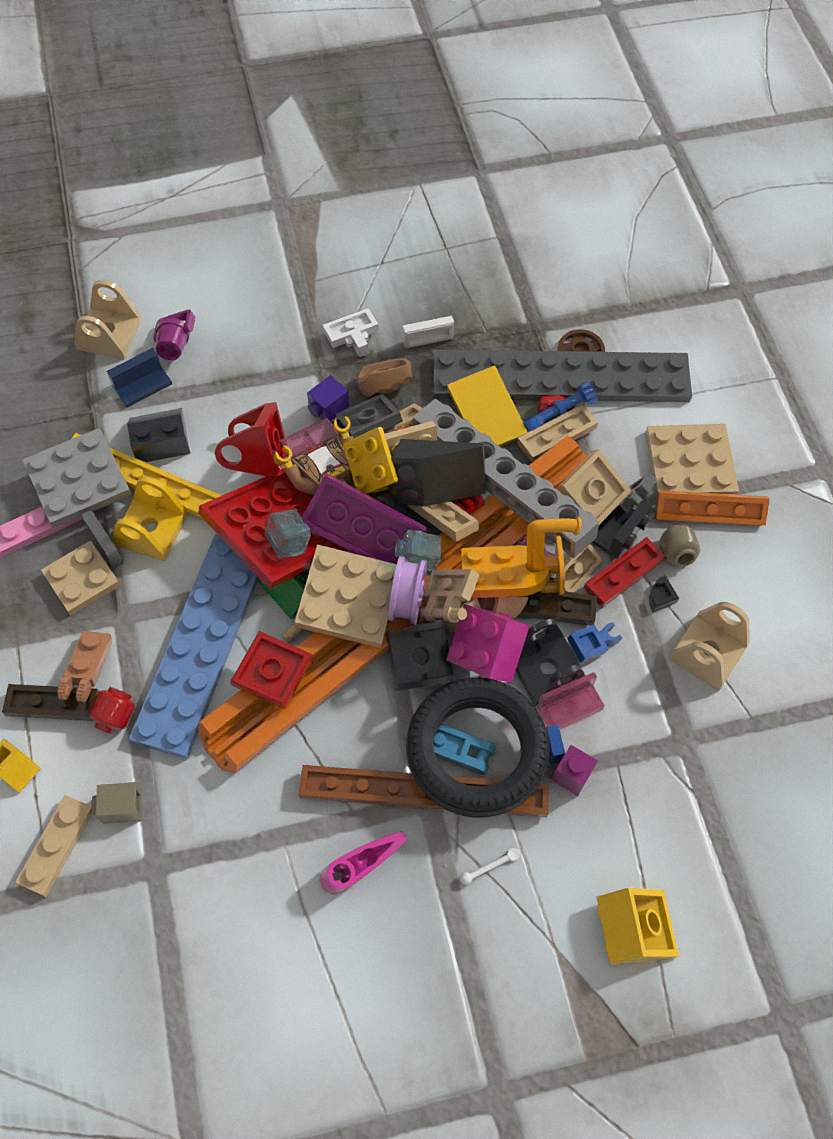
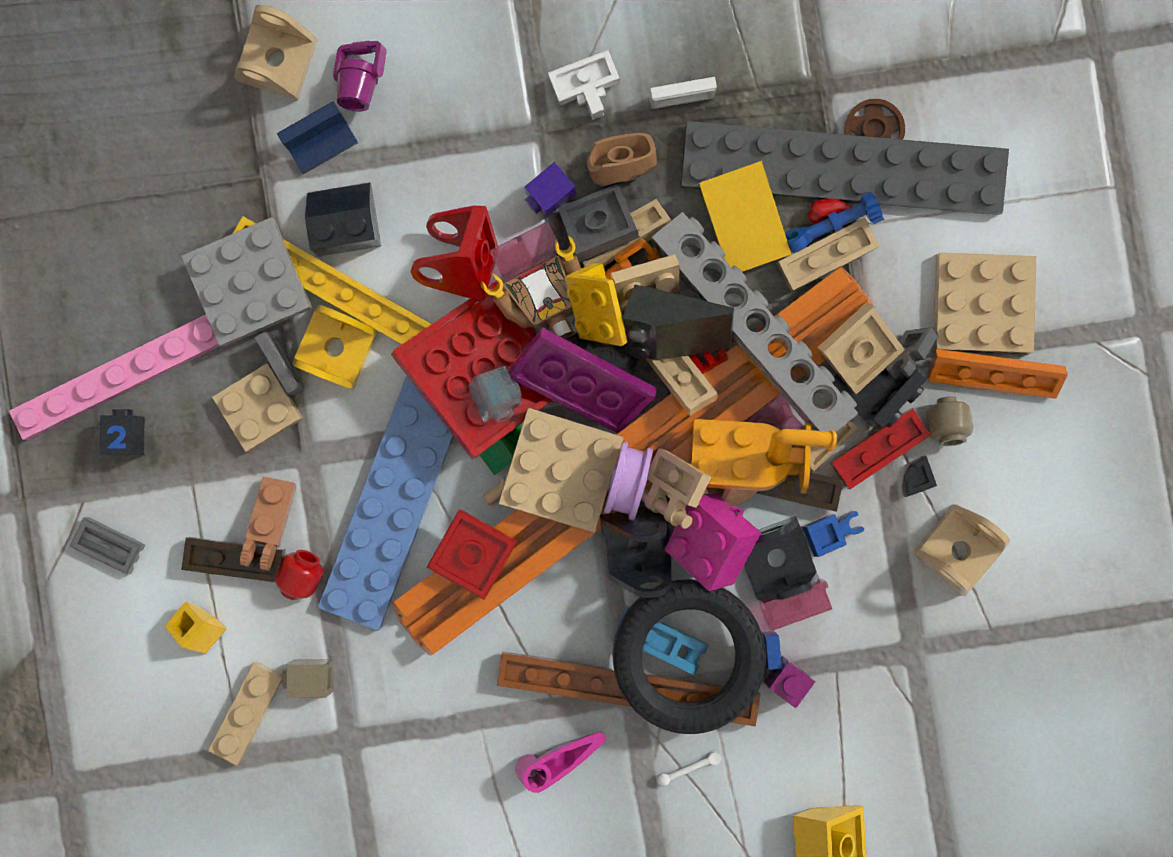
camera: 10 degrees right, 25 degrees up
(418, 547) = (644, 425): clear light blue brick -> none

